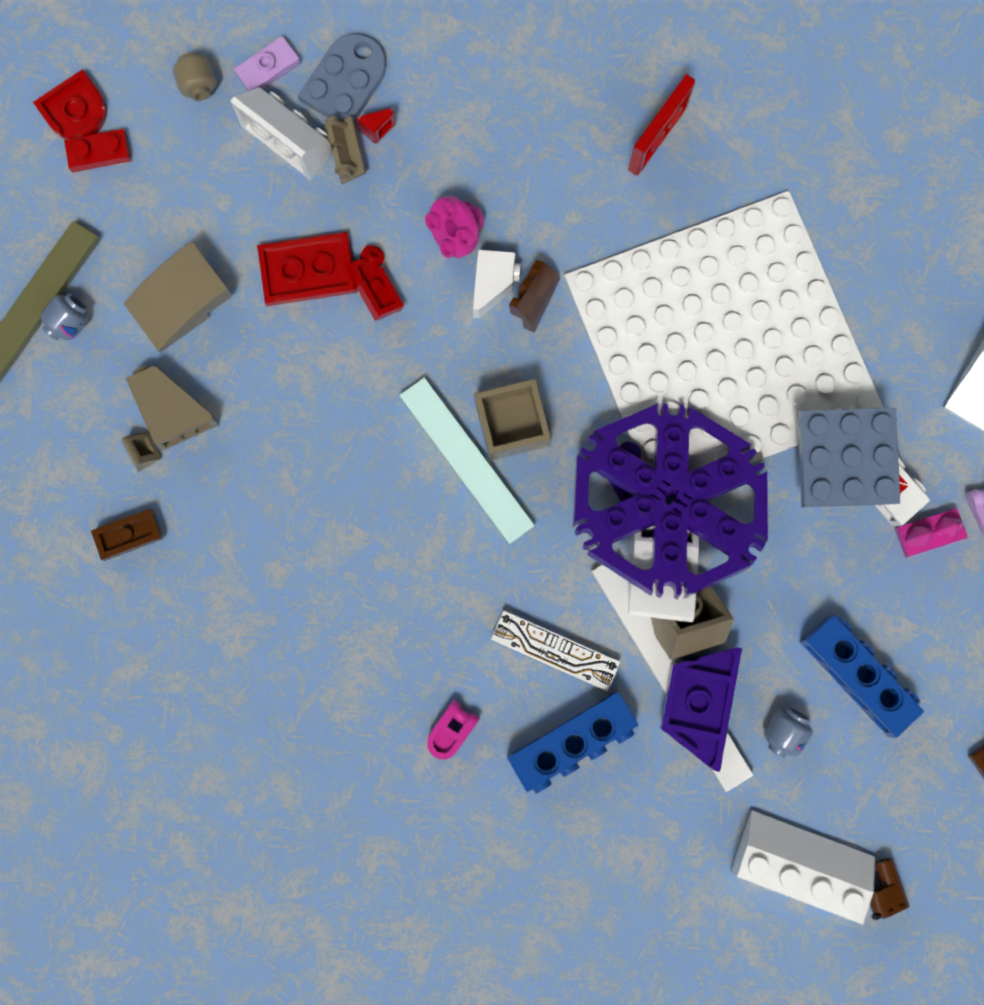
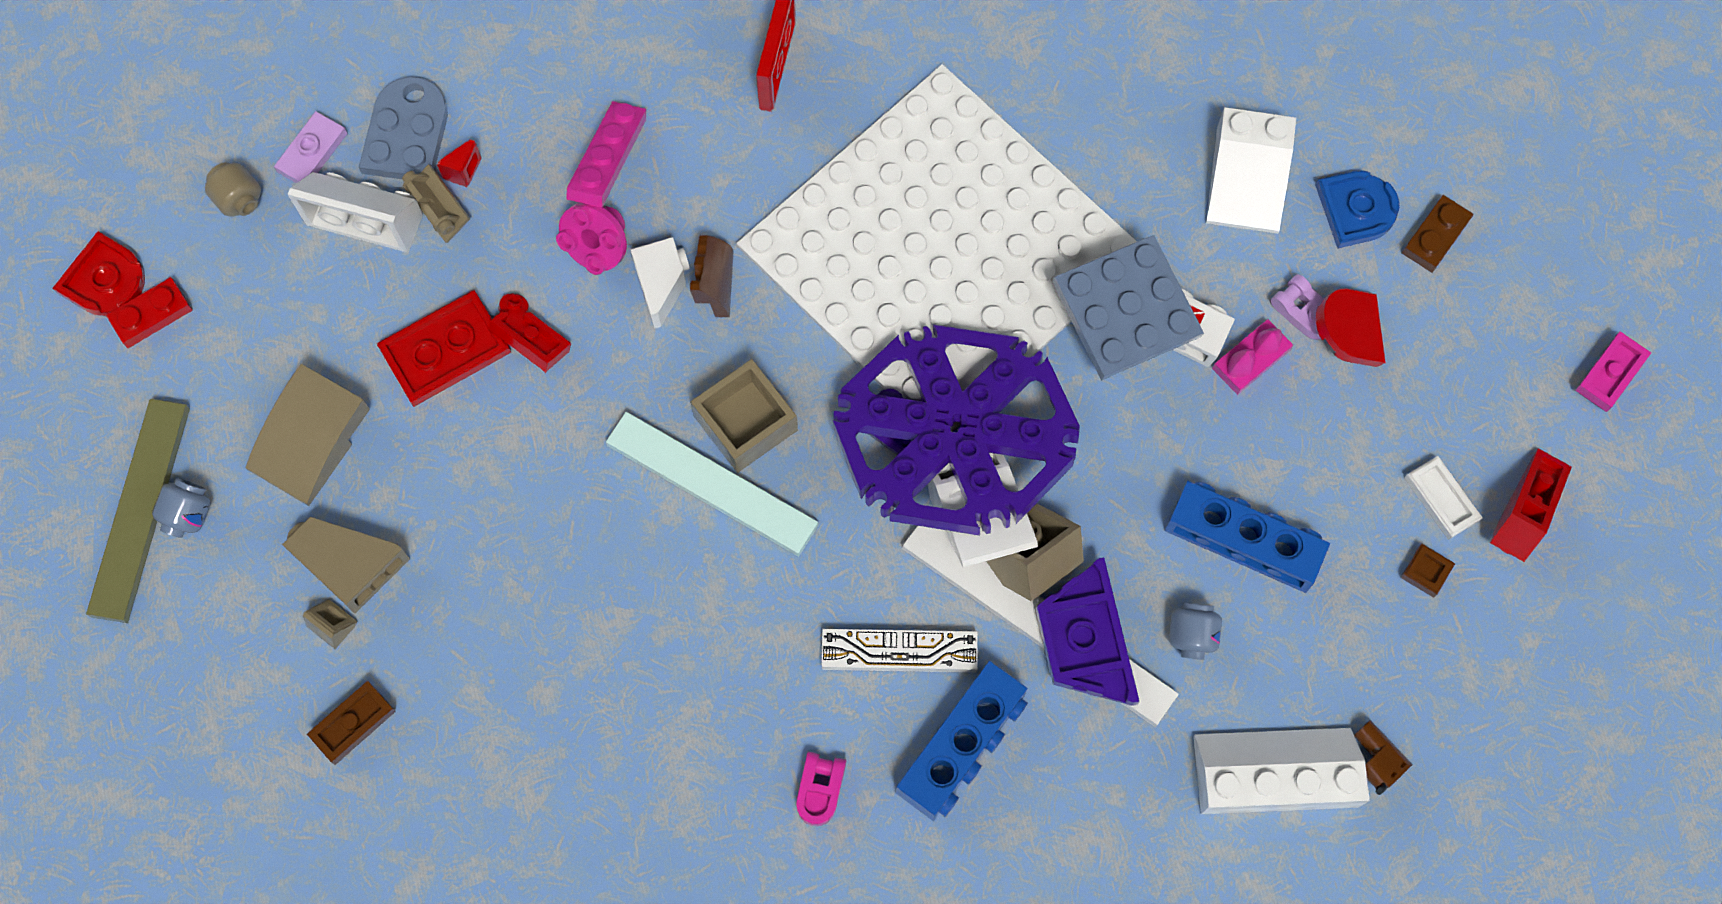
camera: 25 degrees left, 10 degrees down
(490, 163) = (606, 154): none -> dark pink plate

